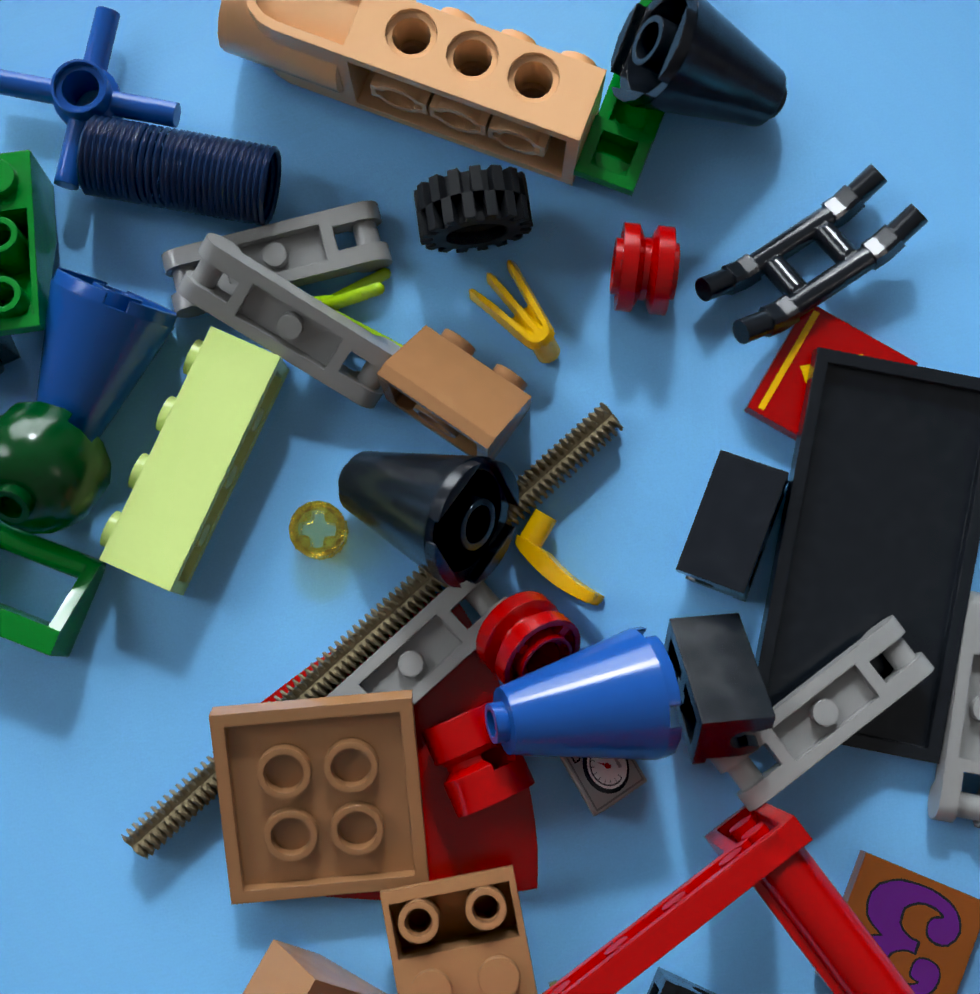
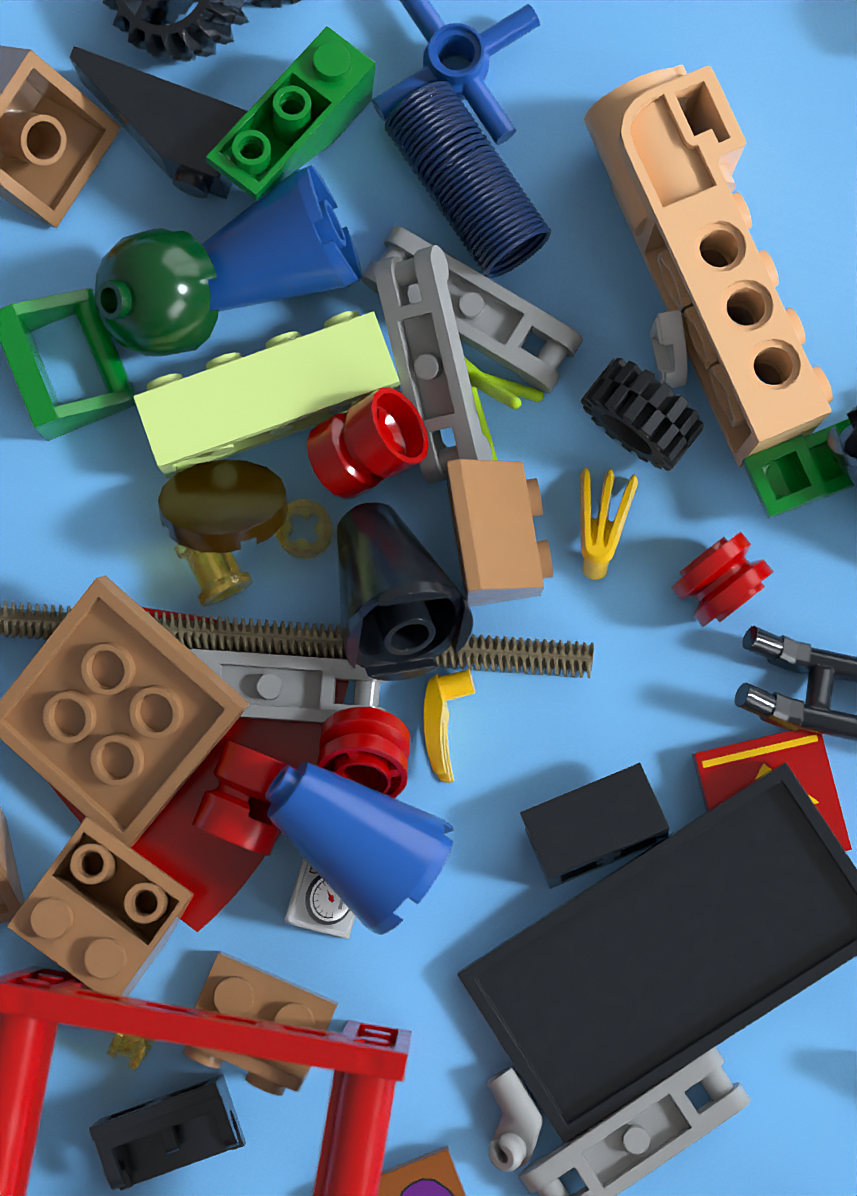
camera: 50 degrees right, 0 degrees up
(245, 571) = (222, 505): none -> dark brown tile
(281, 620) = (215, 574): none -> clear yellow bush
(303, 423) = (367, 444): none -> red wheel
(441, 146) = (670, 348): none -> white tile
(631, 887) = (254, 993): none -> medium nougat bracket
(717, 686) = (461, 920): black hinge -> none
(828, 711) = (517, 1019): light grey plate -> none
(893, 782) = (518, 1124): none -> light grey arm

